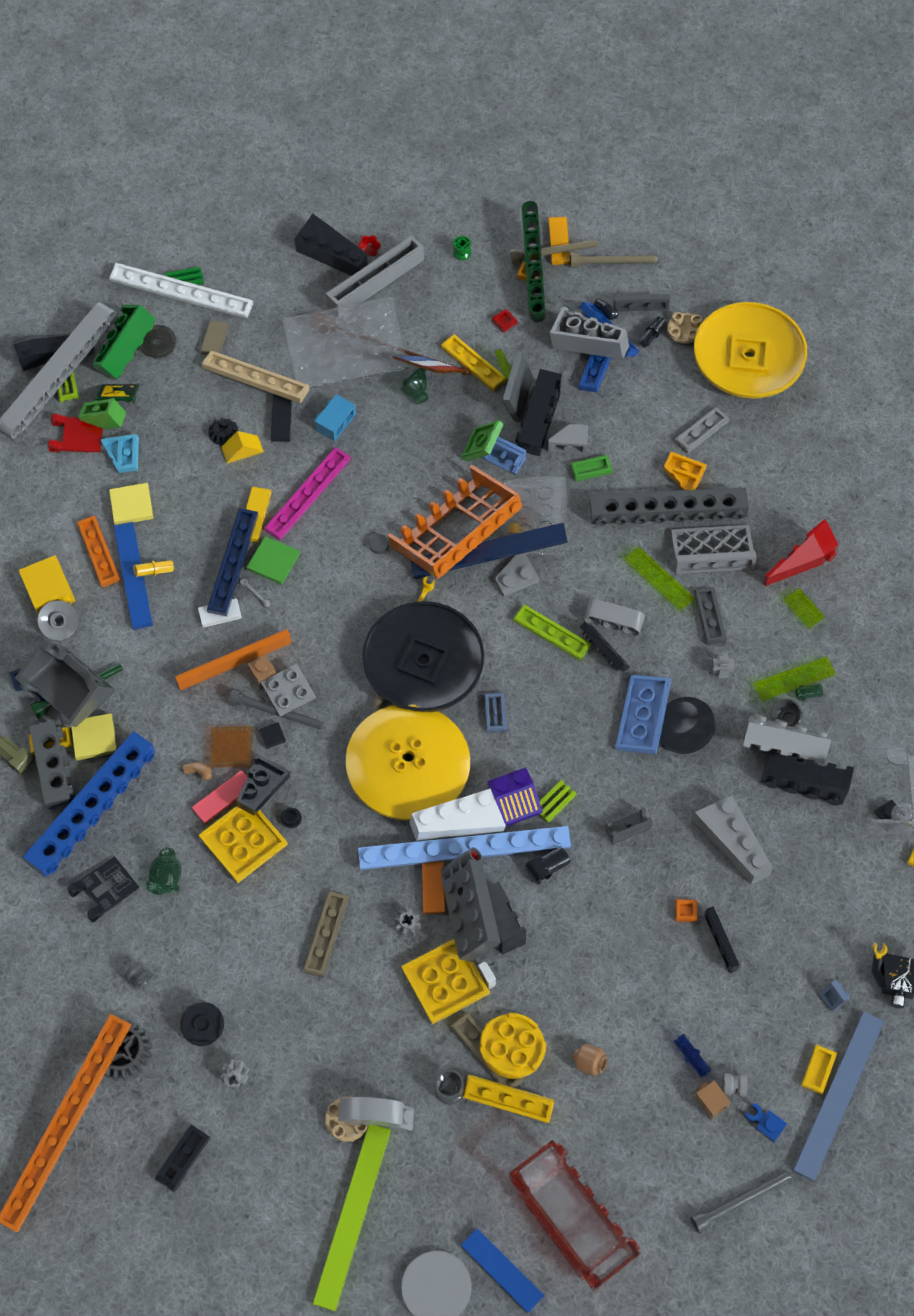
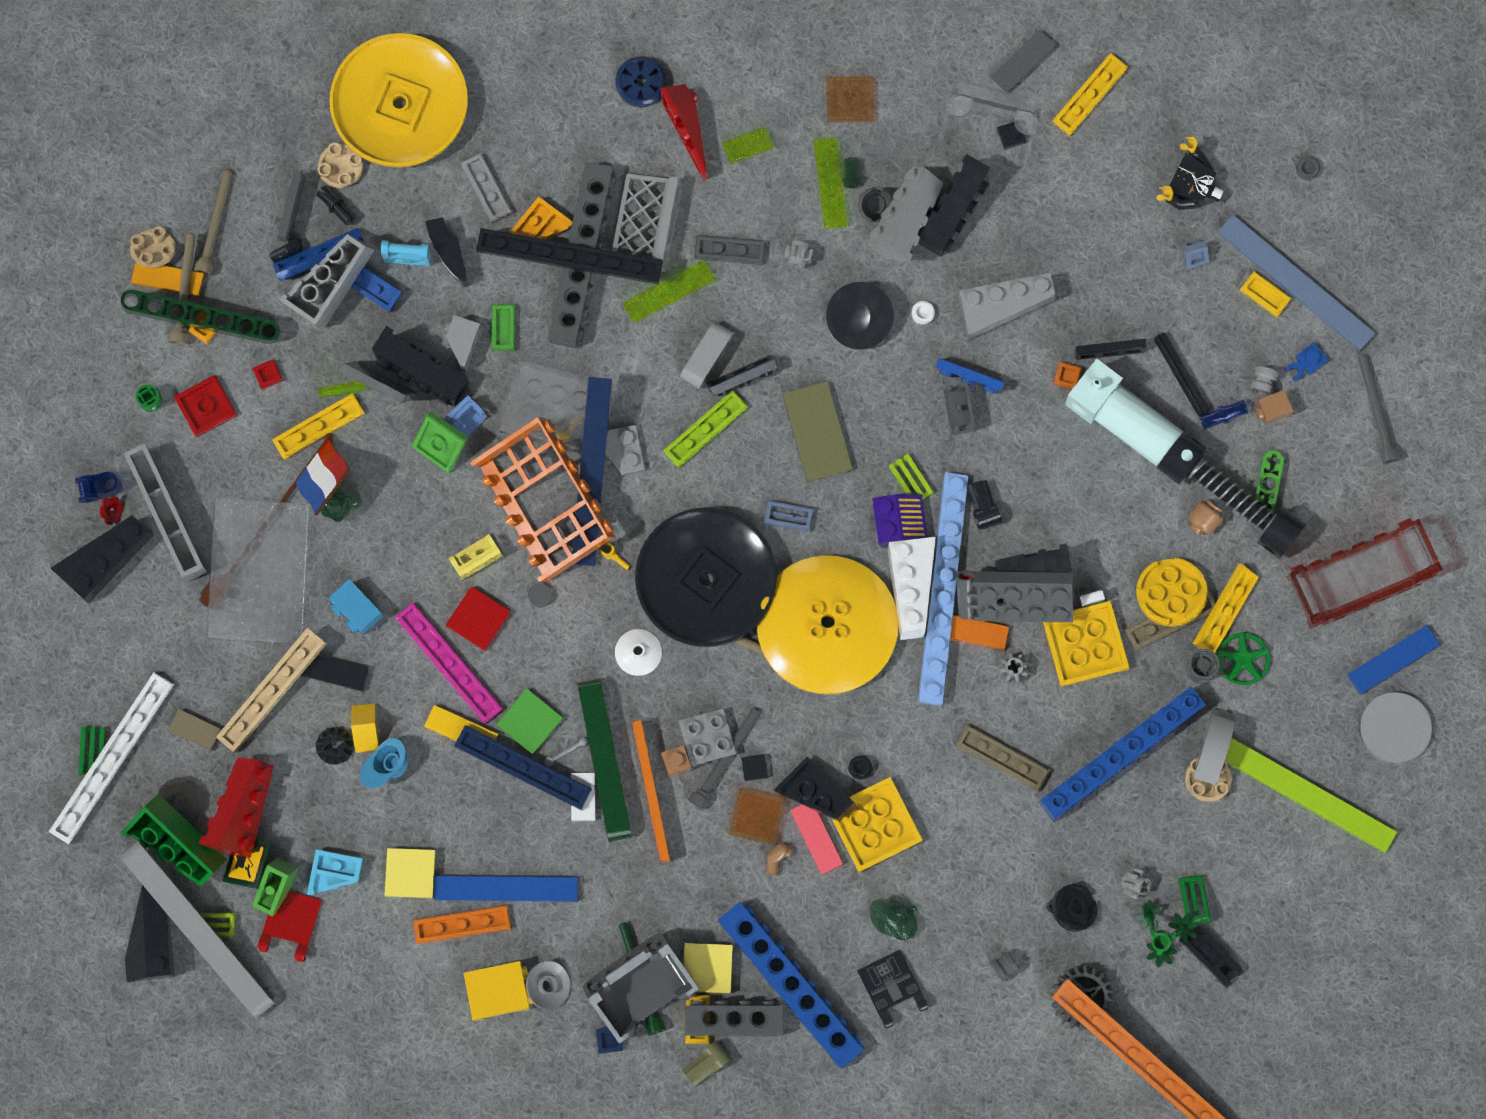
camera: 75 degrees left, 15 degrees up
(153, 374) = (240, 809): none -> red wedge
(153, 568) = (507, 862): yellow axle -> none
(179, 1103) = (1162, 939): none -> dark green plant
(215, 466) = (384, 764): none -> dark azure piece
(217, 1143) = (1190, 880): none -> green tile
(252, 618) = (604, 760): none -> dark green beam
(348, 505) = (478, 618): none -> red tile
(350, 634) = (642, 663): none -> white dish
(352, 1034) = (1122, 754): none -> blue brick
(385, 233) = (93, 487): none -> clear blue piece
(396, 490) = (475, 557): none -> light yellow hinge
(467, 287) = (205, 406): none -> red tile
(467, 1126) = (1244, 658): none -> green wheel
(574, 718) = (817, 432): none -> olive tile
(579, 224) = (152, 247): none -> tan dish
(627, 382) = (405, 253): none -> medium azure plate
(640, 1017) = (1172, 451): none -> piece
(641, 413) = (447, 249): none -> black slope
(643, 714) = (833, 356): medium blue tile -> none
(644, 1104) = (1277, 468): none -> bright green beam
(659, 826) = (990, 384): none -> blue plate
(662, 494) = (569, 256): none -> black tile
(705, 778) = (923, 312): none -> white tile
(719, 1009) = (1181, 374): none -> black axle
(833, 507) = (627, 77): none -> dark blue wheel
(873, 677) = (849, 99): none -> clear orange tile

